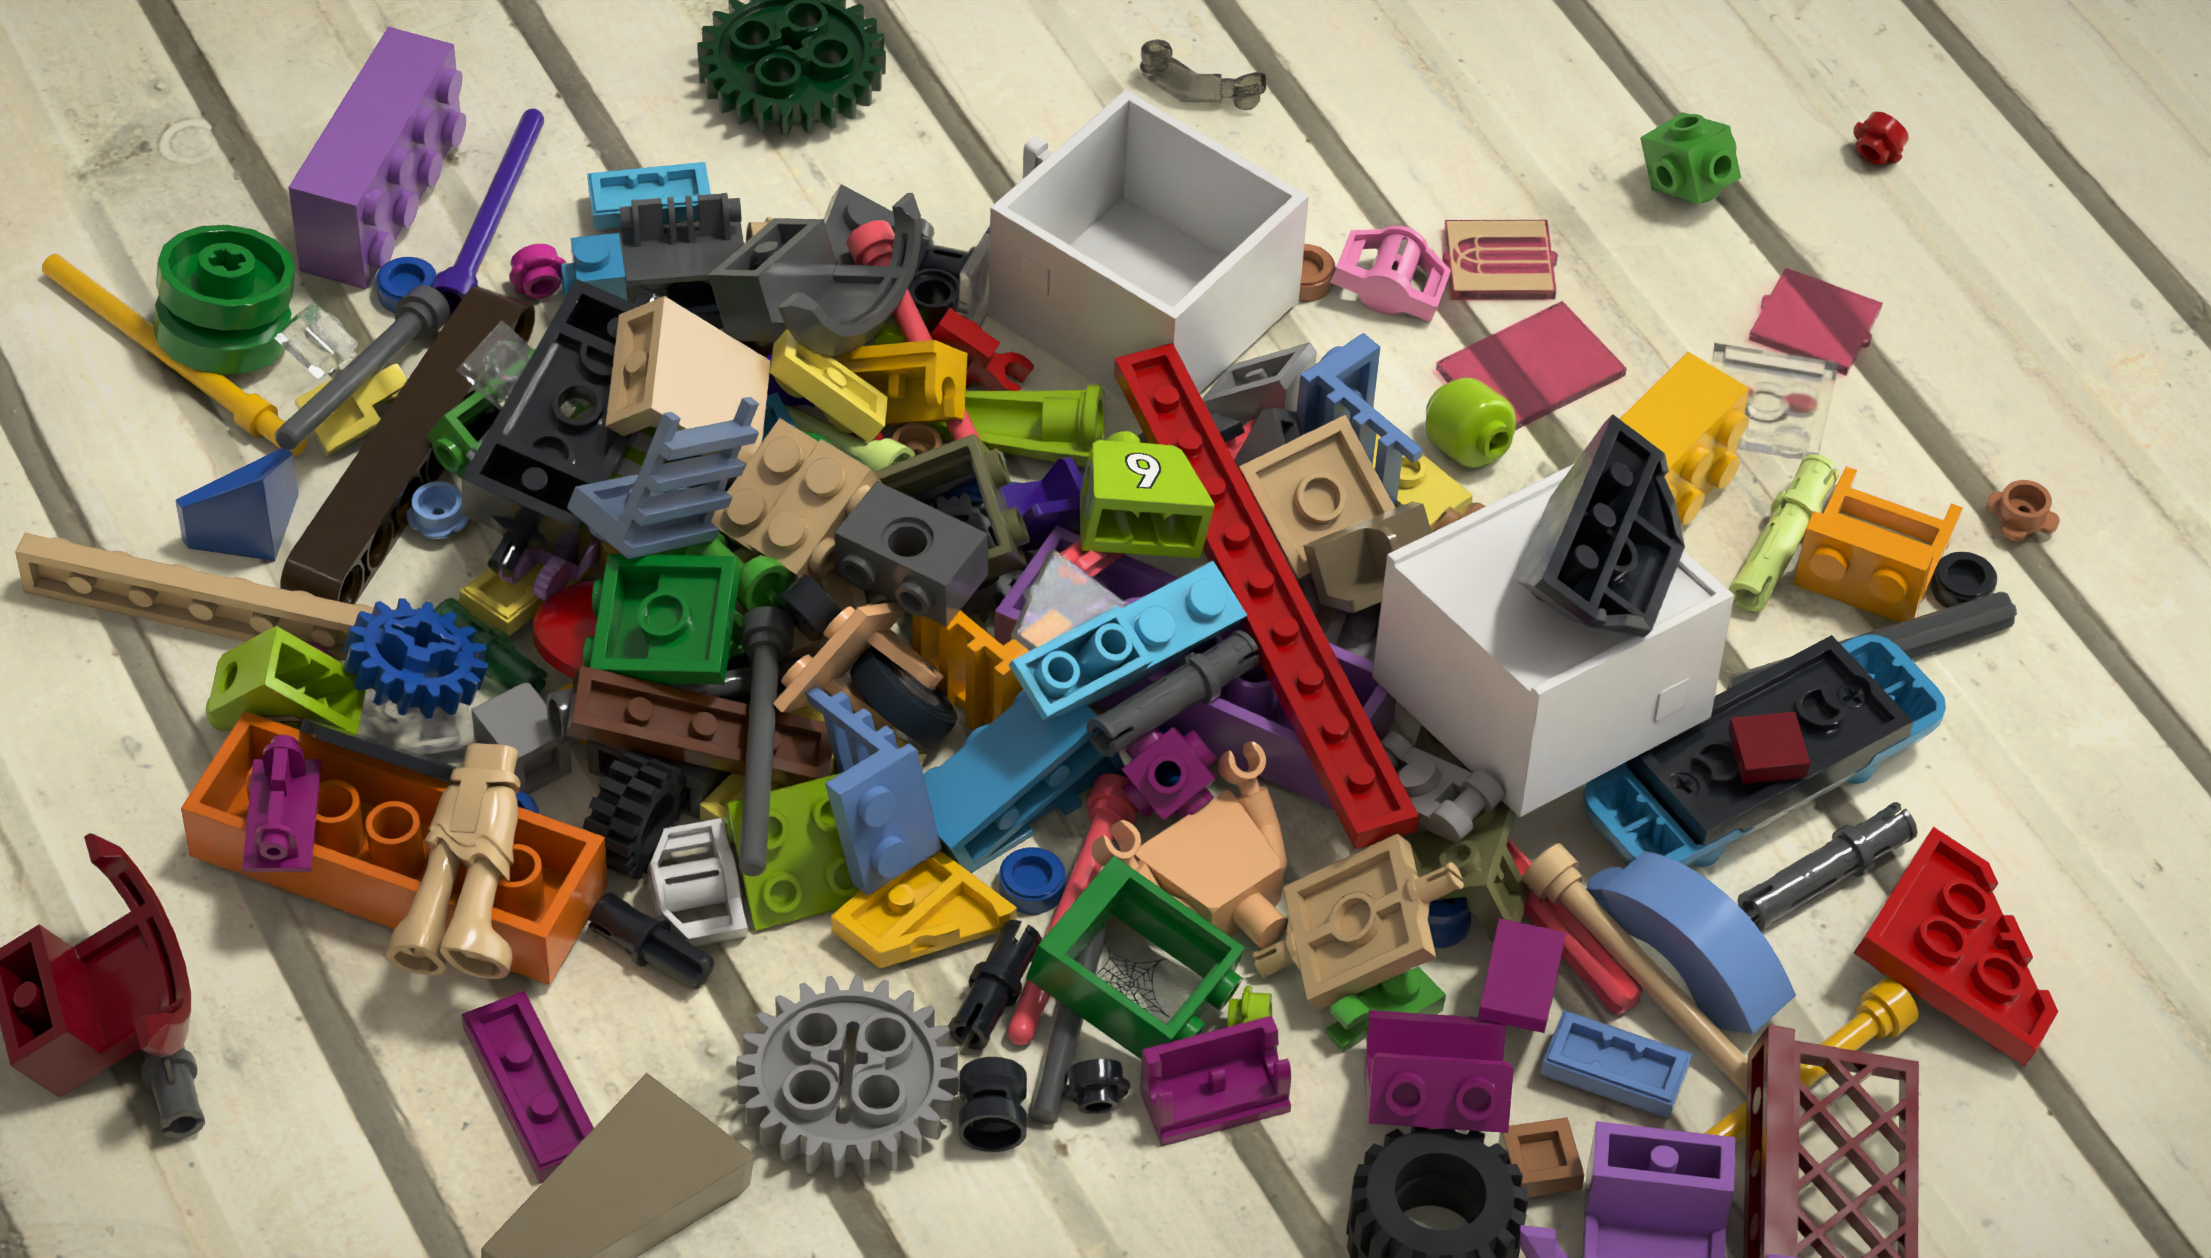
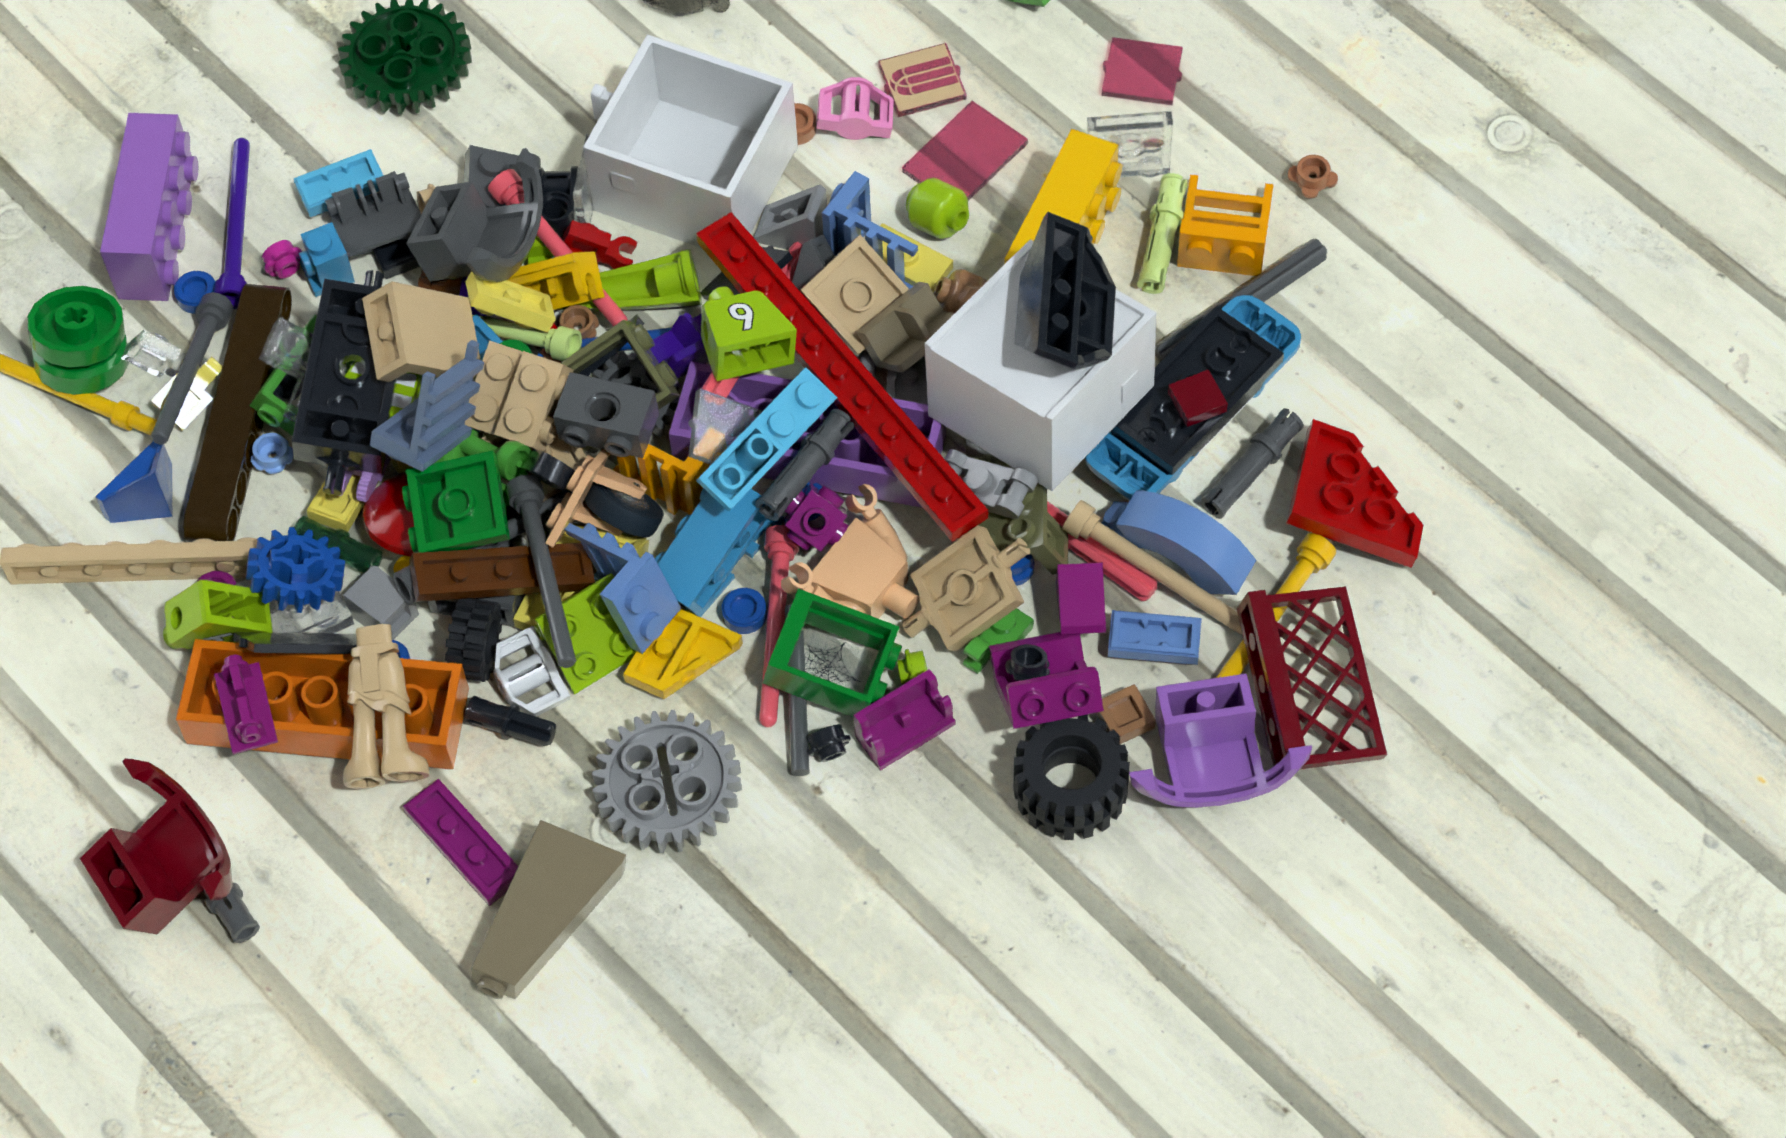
camera: 10 degrees left, 10 degrees up
(992, 1108) = (766, 775): black wheel -> none
(994, 985) = (742, 690): black pin -> none
(1417, 1037) = (1027, 662): none -> black plate
(1962, 578) = (1286, 235): black tile -> none

